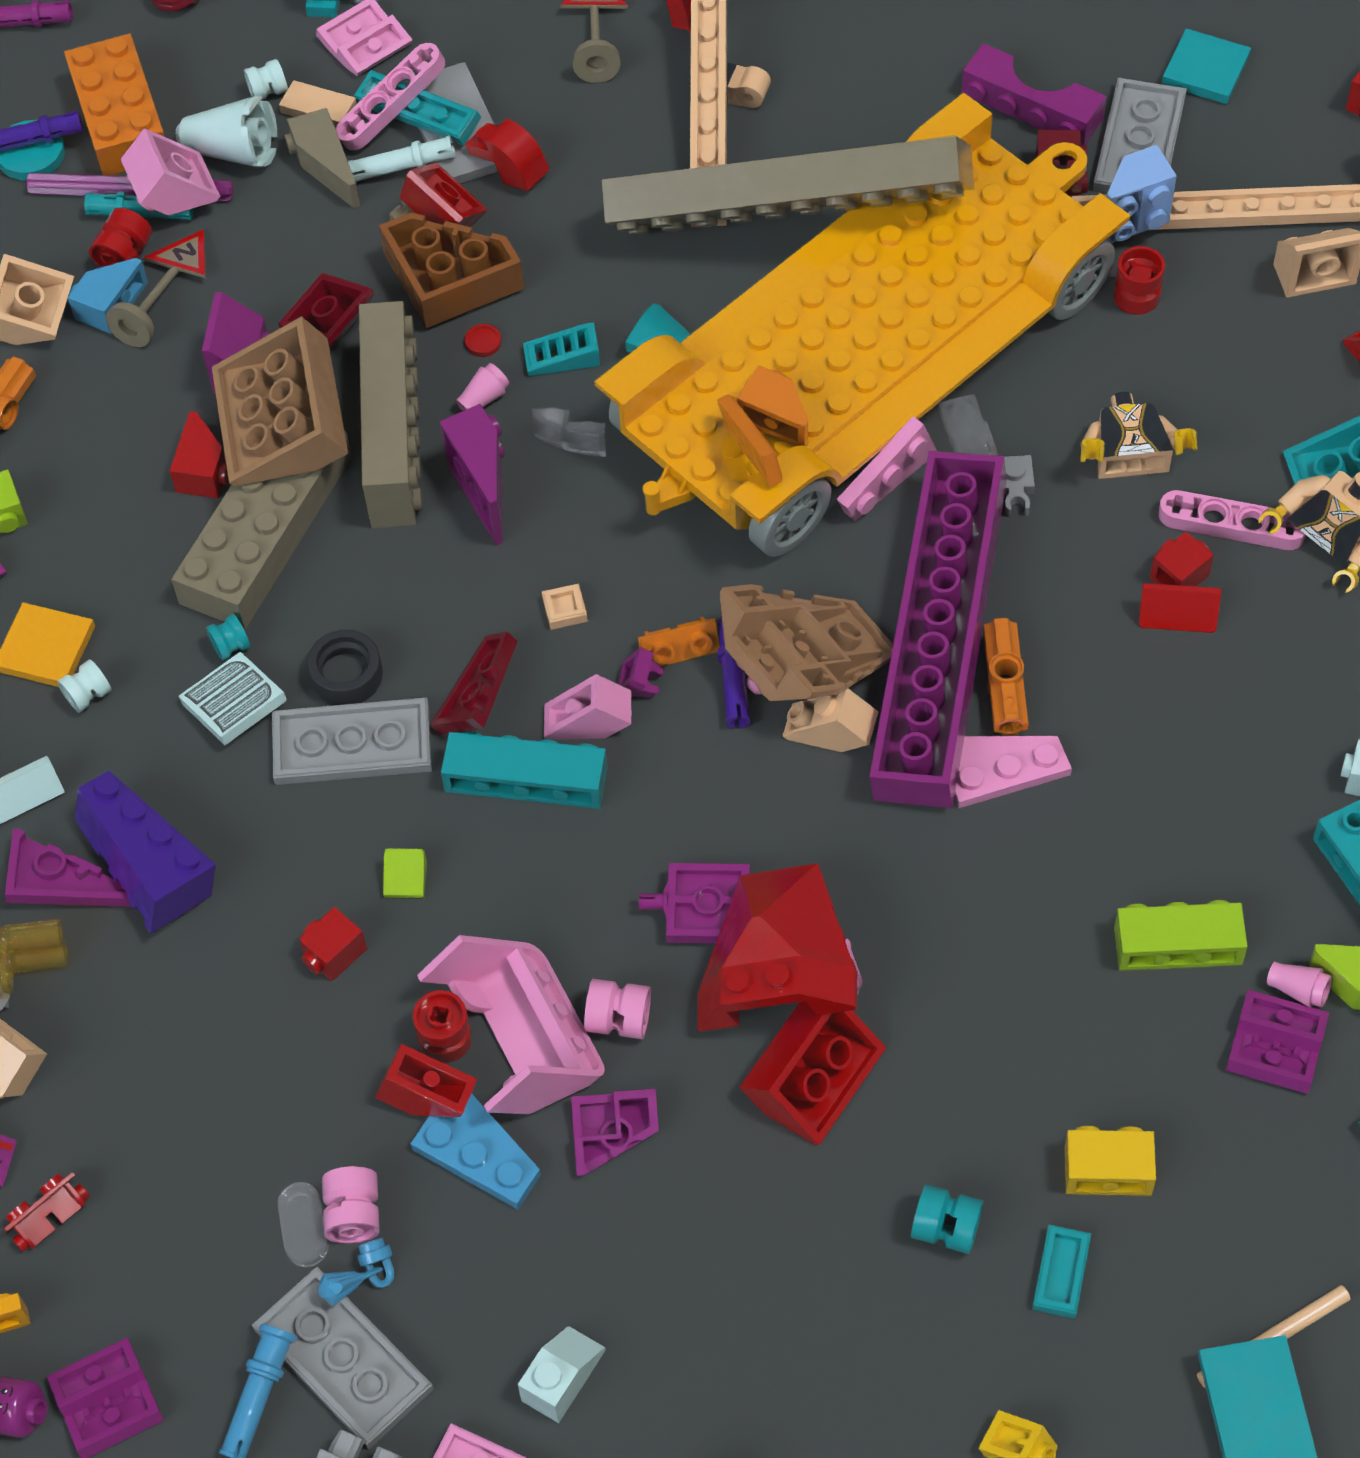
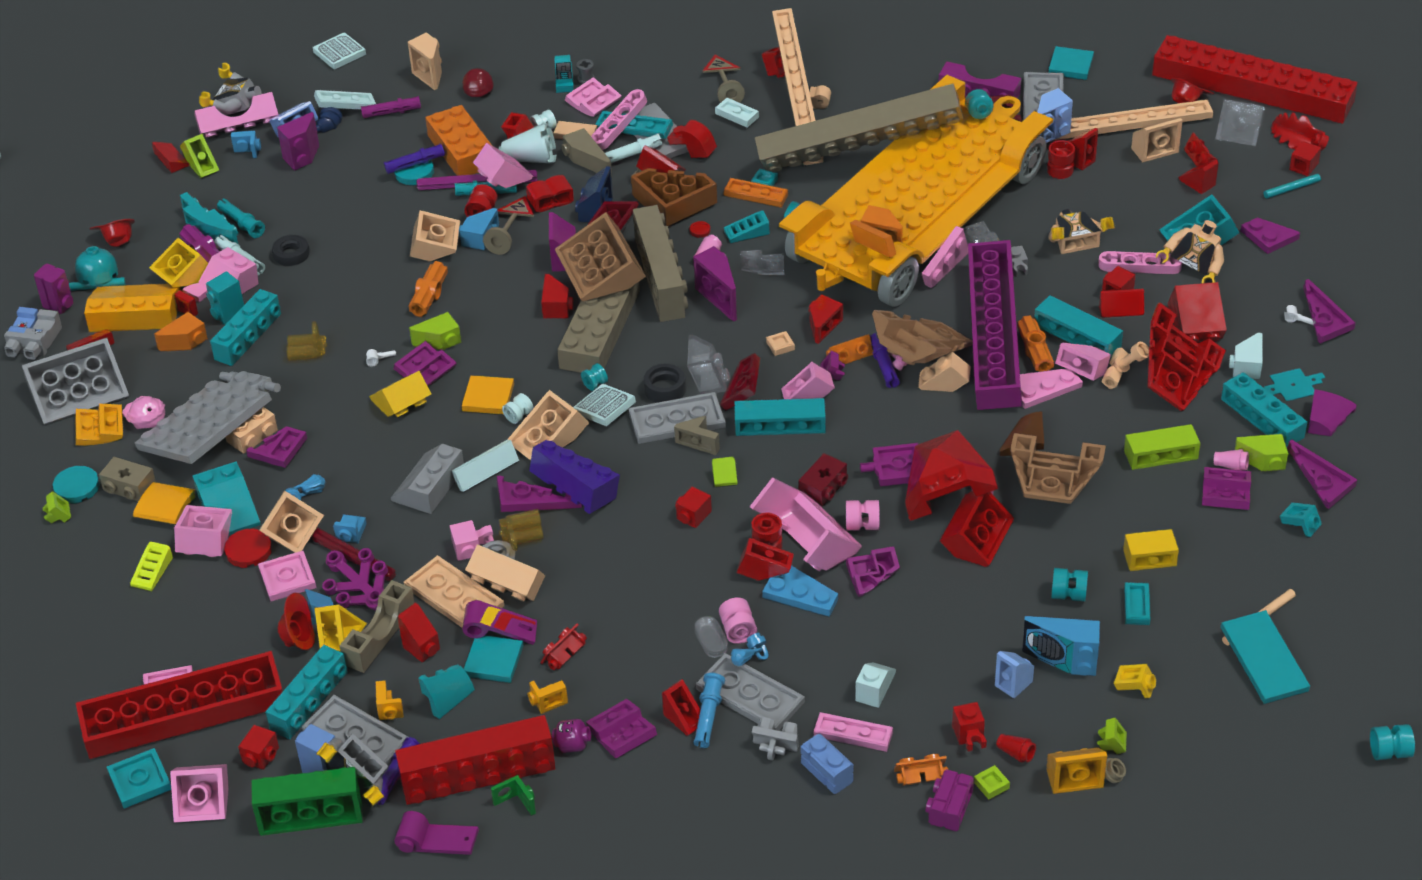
camera: 10 degrees left, 15 degrees down
(125, 733) = (549, 420): none -> light nougat slope
(212, 1379) = (681, 707): none -> red slope
(215, 88) = (516, 124): none -> red brick
(242, 233) = (549, 193): none -> red brick
(315, 250) = (594, 194): none -> dark blue slope
(371, 787) = (695, 435): none -> dark tan slope
(414, 653) = (706, 366): none -> clear slope
(568, 919) = (824, 479): none -> dark red brick
(595, 275) = (756, 192): none -> orange tile
(600, 101) = (737, 112): none -> light aqua plate
(616, 249) = (765, 177): none -> teal tile
(650, 564) = (824, 316): none -> red slope
(805, 1399) = (1013, 673): none -> light blue slope
(911, 1358) = (1063, 643): none -> dark azure slope
(944, 873) = (1028, 425): none -> reddish brown slope
(967, 976) = (1052, 474): none -> medium nougat wedge
(1007, 159) = (979, 104): none -> teal head
(1082, 727) = (1083, 360): none -> bright pink slope
(1088, 654) = (1077, 326): none -> teal brick
(1149, 738) = (1121, 363): none -> light nougat bar
(1185, 263) = (1085, 148): none -> red slope
(1248, 758) = (1178, 362): none -> red wedge
(1307, 655) = (1198, 311): none -> red slope

